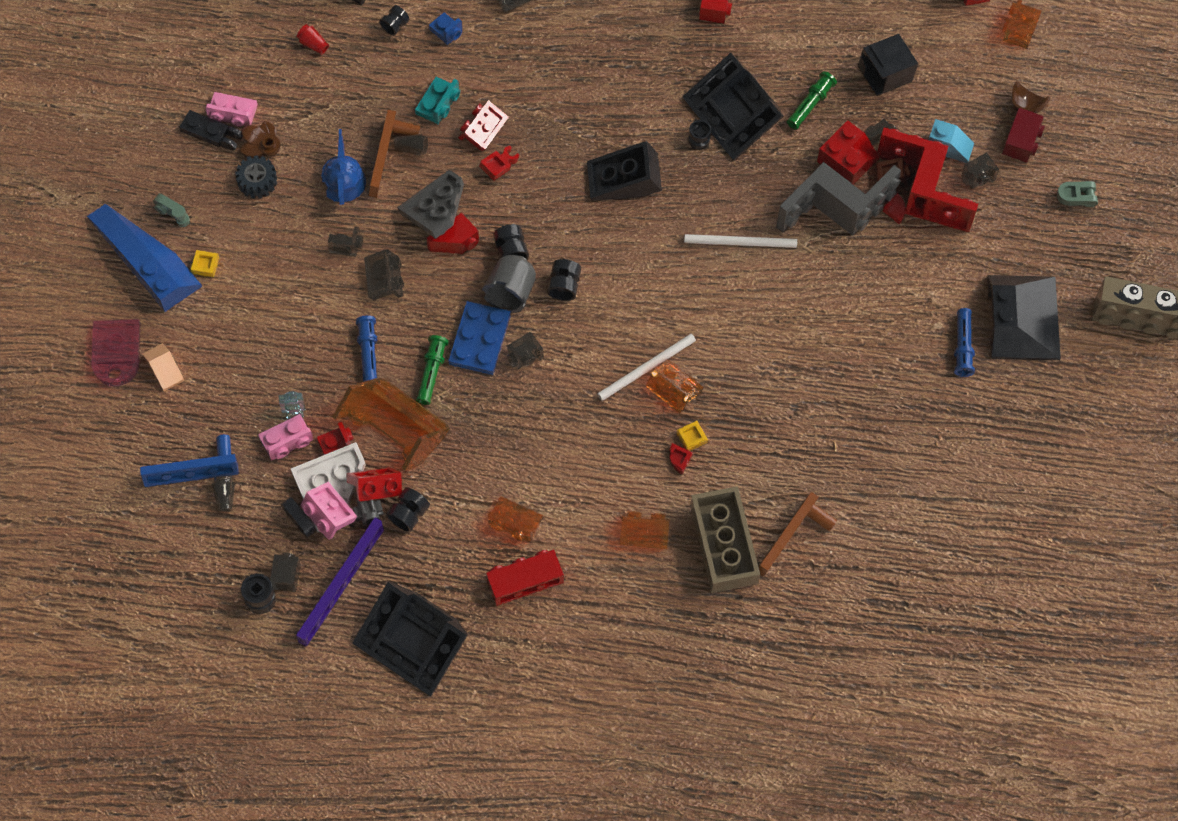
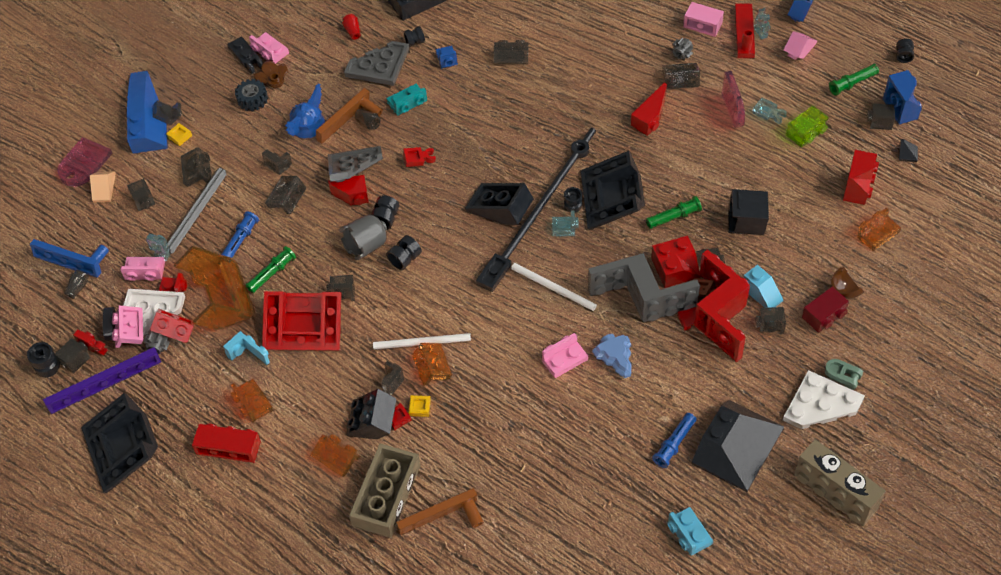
camera: 35 degrees right, 10 degrees down
(166, 205) = (182, 92): sand green plate -> none
(174, 245) = (167, 113): none -> clear smoke bracket
(220, 356) = (141, 194): none -> clear smoke brick
(257, 293) = (195, 167): none -> clear smoke bracket
(288, 545) = (89, 340): none -> red plate
(293, 337) = (196, 209): none -> axle
(377, 72) = (379, 64): none -> dark grey plate
(410, 507) = (175, 357): black wheel -> none
(466, 461) = (240, 342): none -> medium azure bracket
(479, 338) = (319, 264): blue plate -> none
(483, 125) = (425, 127): bracket -> none
(510, 407) = (301, 321): none -> red slope
(647, 416) = (393, 378): none -> clear smoke bracket
(653, 471) = (371, 415): none -> black slope
(670, 243) = (500, 264): none -> black bar
(708, 166) = (565, 225): none -> clear light blue bracket
(801, 311) = (563, 355): none -> bright pink bracket
(851, 283) = (615, 353): none -> medium blue rock
(1033, 426) = (690, 531): none -> medium azure bracket
(1073, 233) = (821, 402): none -> white plate

